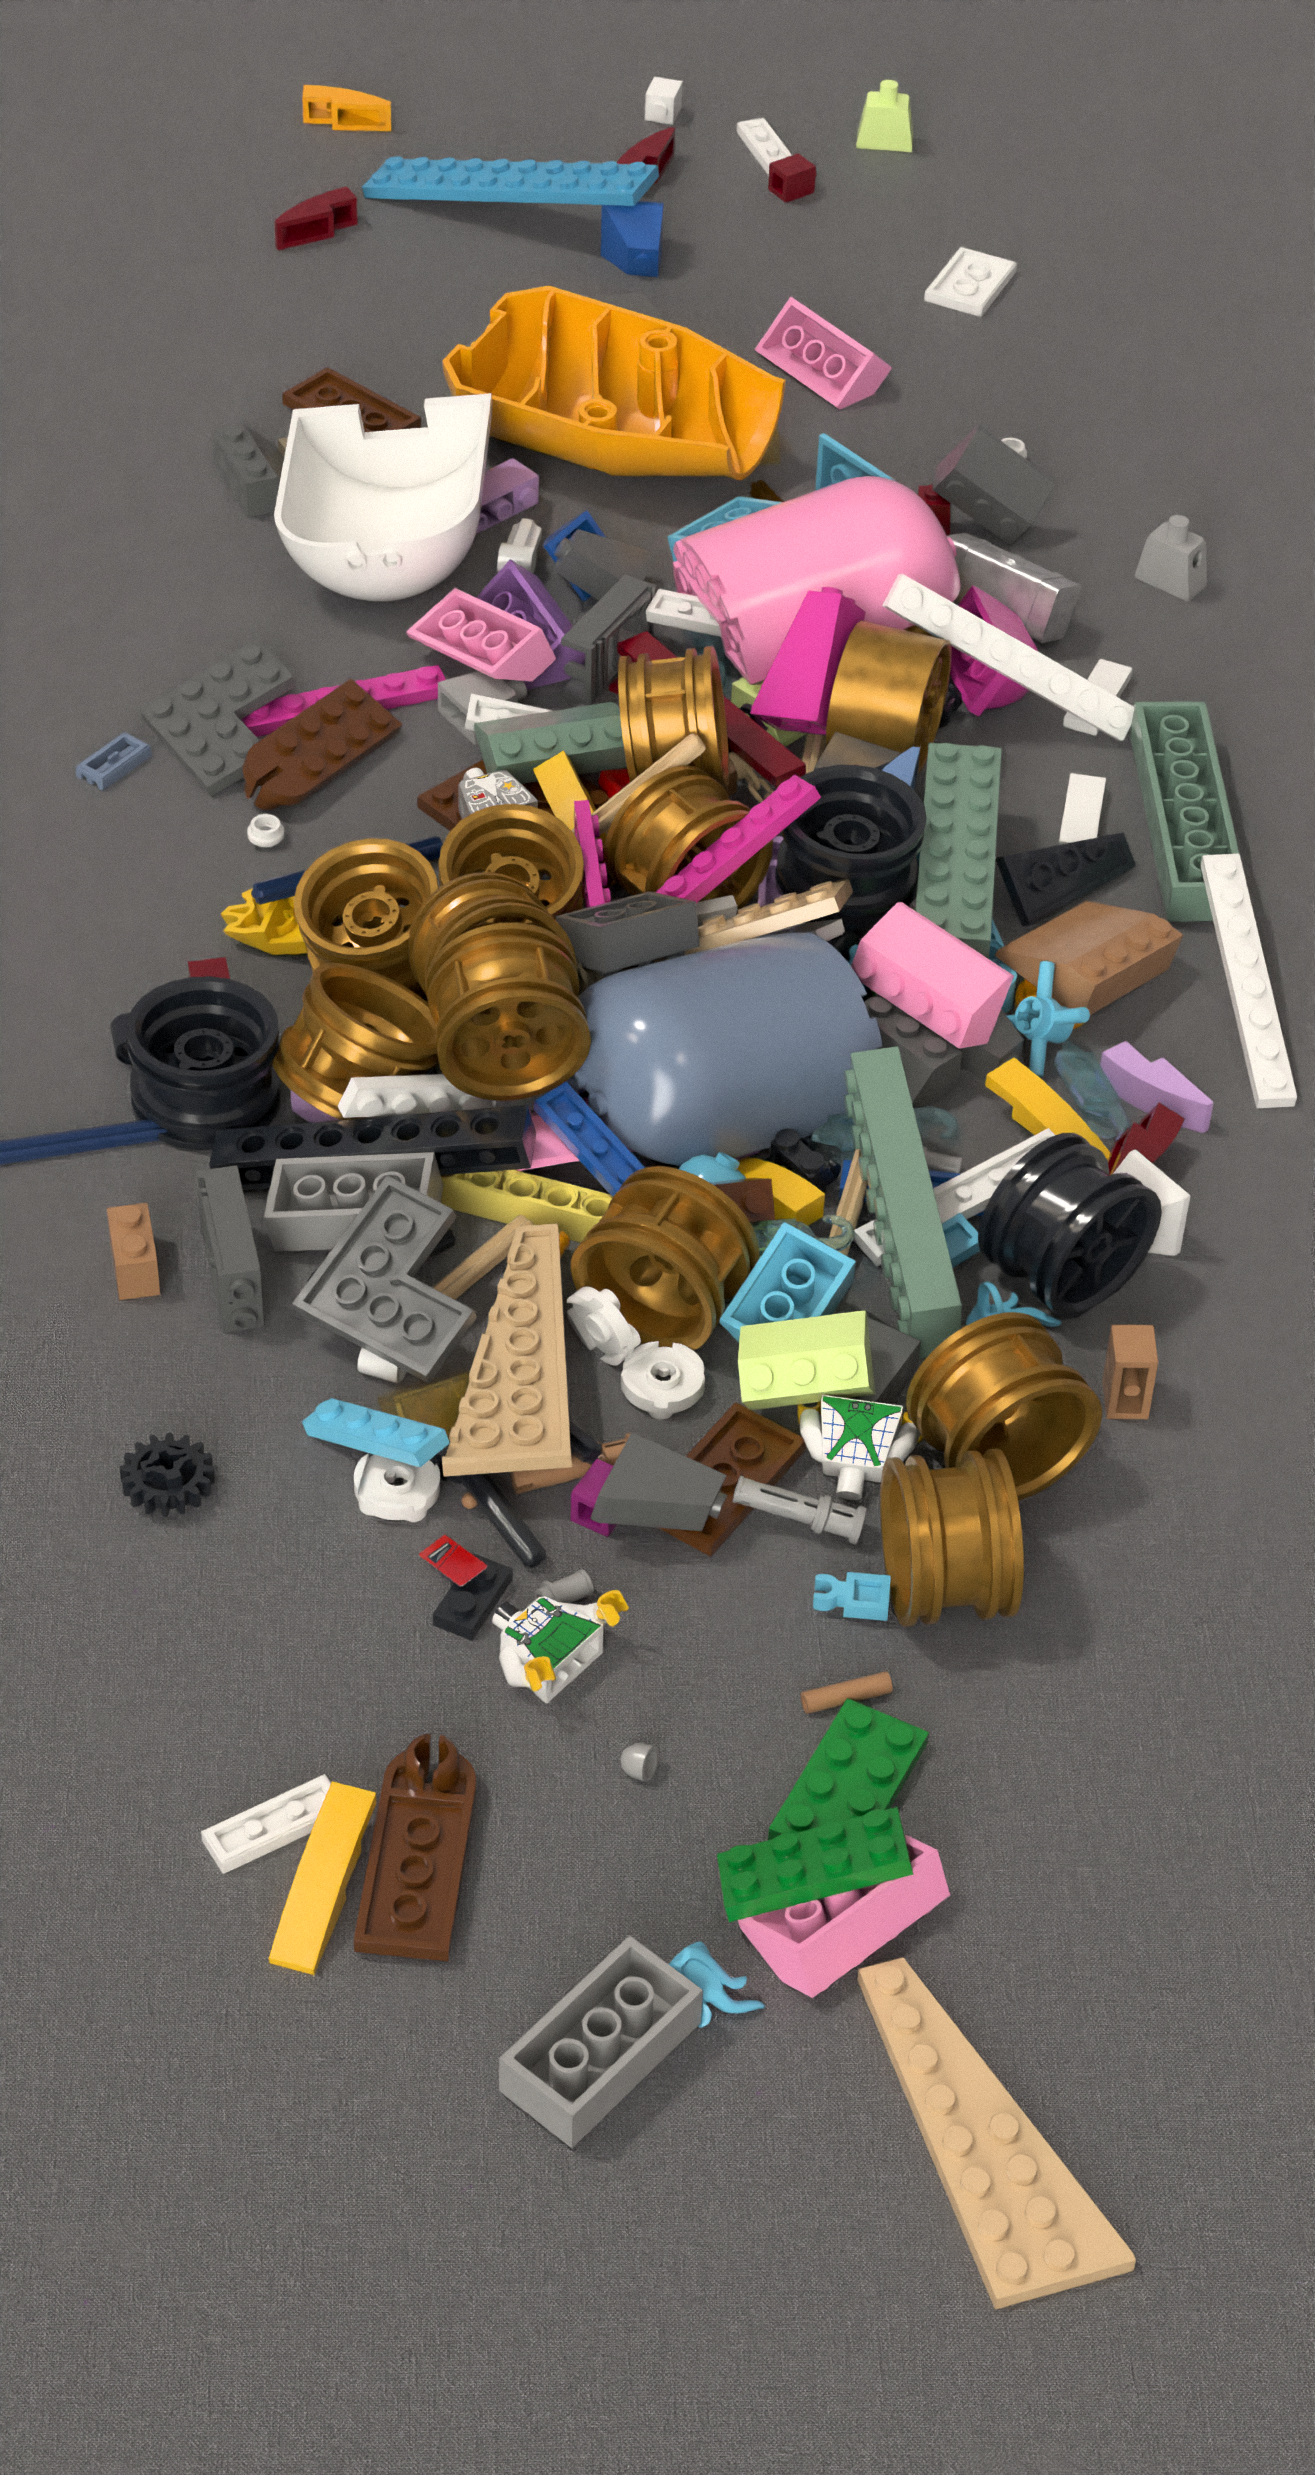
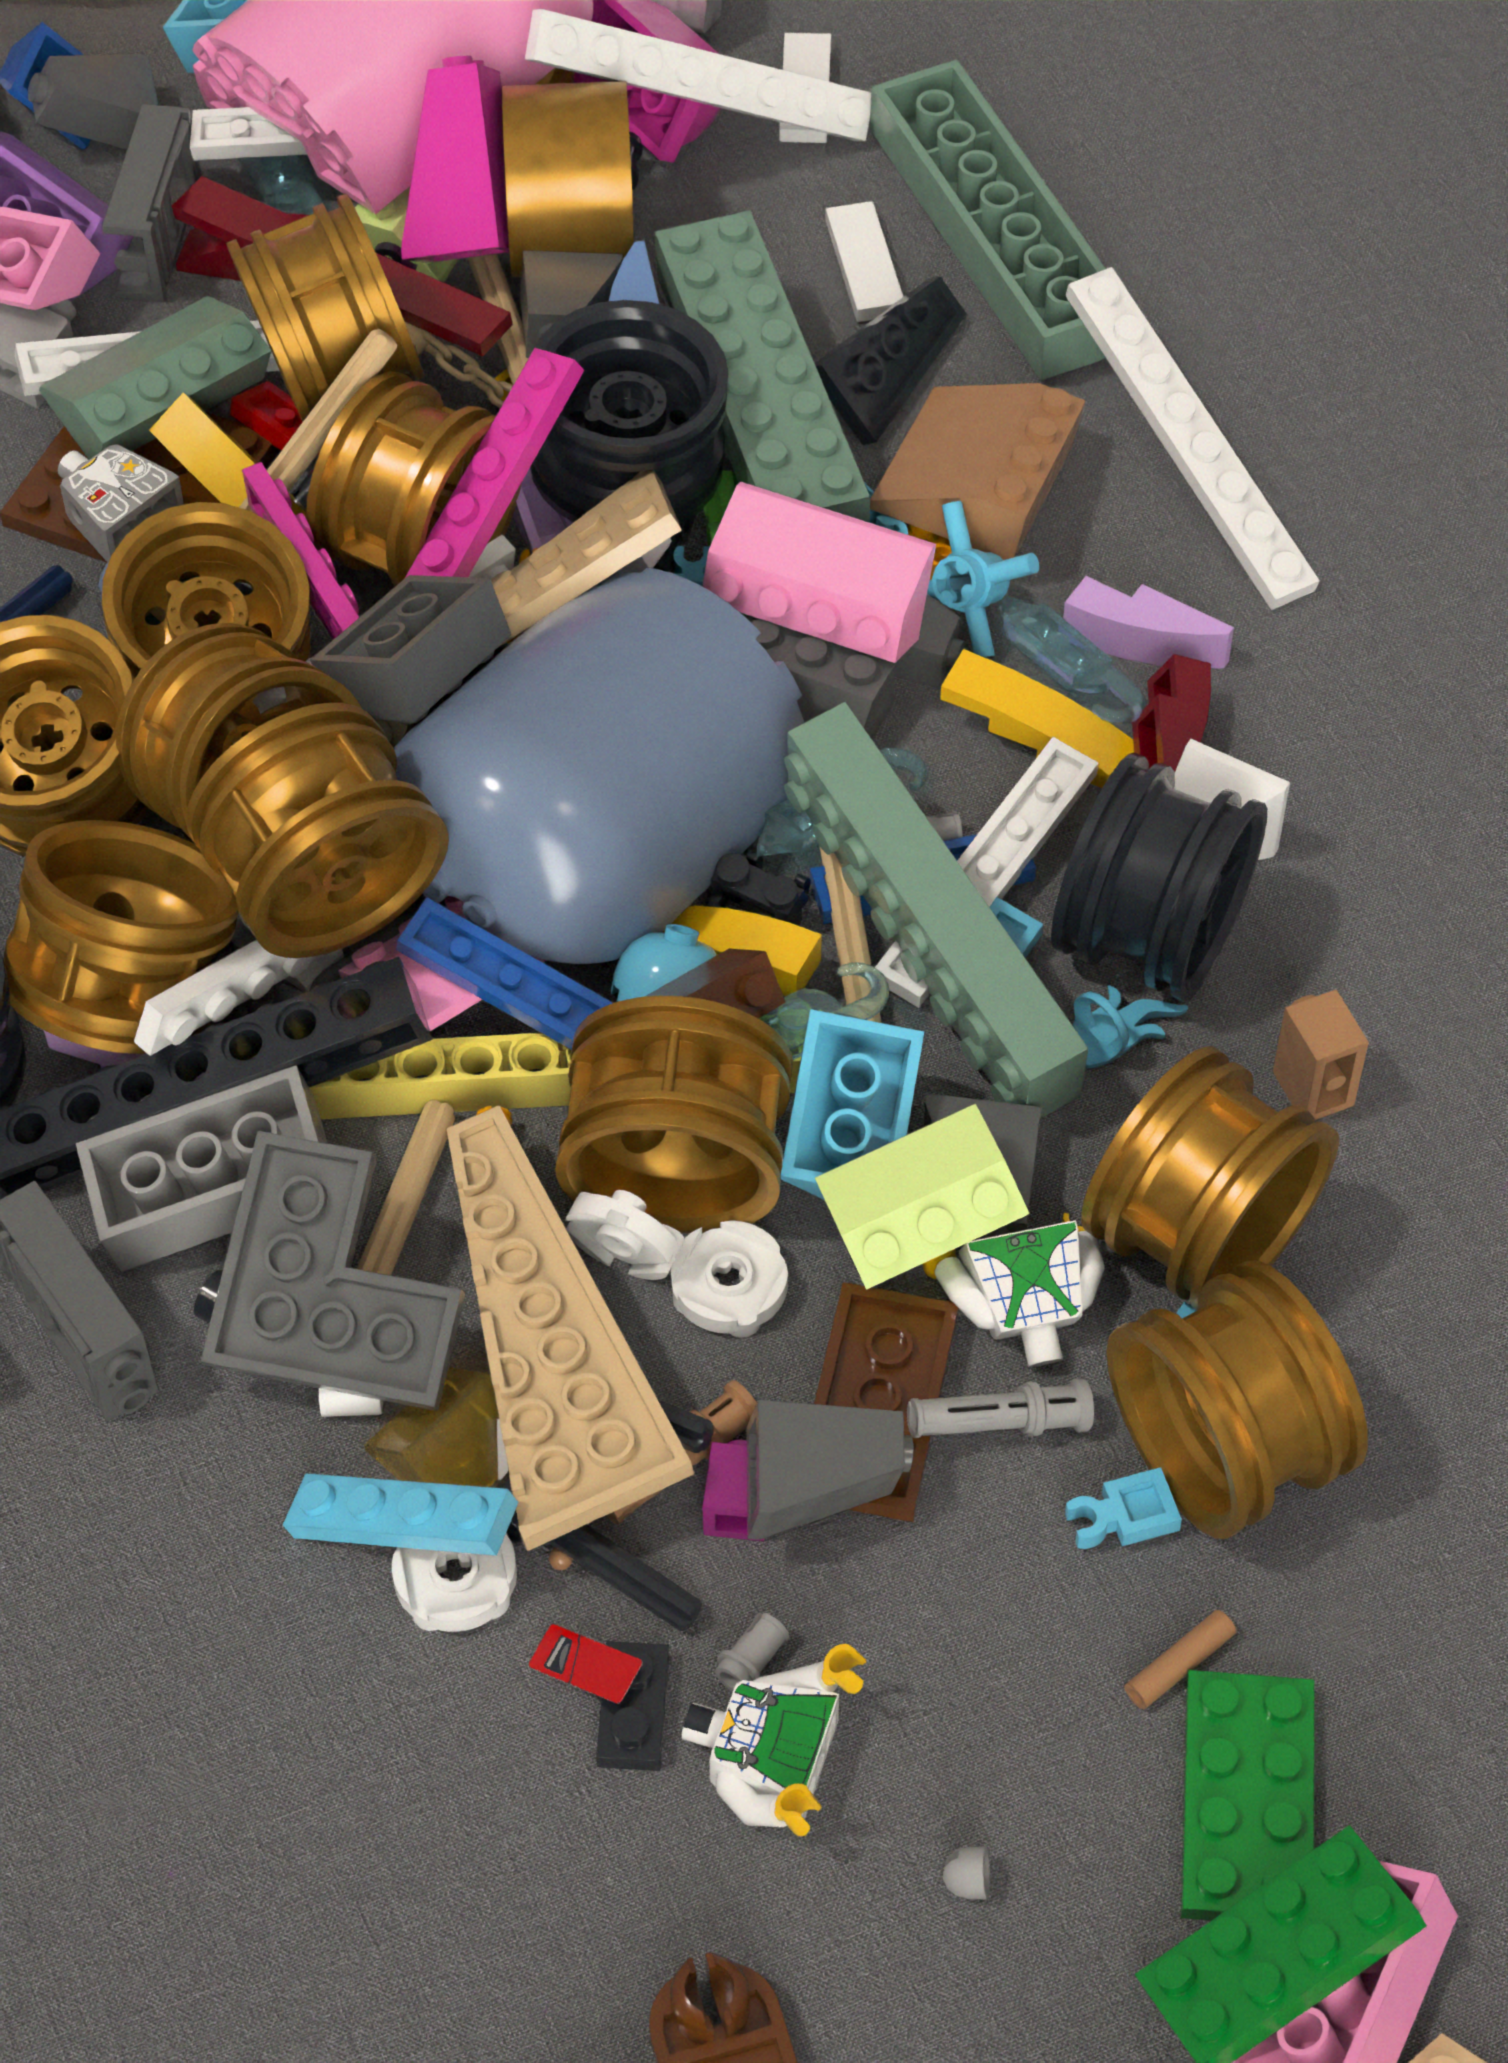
camera: 20 degrees left, 10 degrees up
(167, 1474) = (137, 1692): black gear -> none

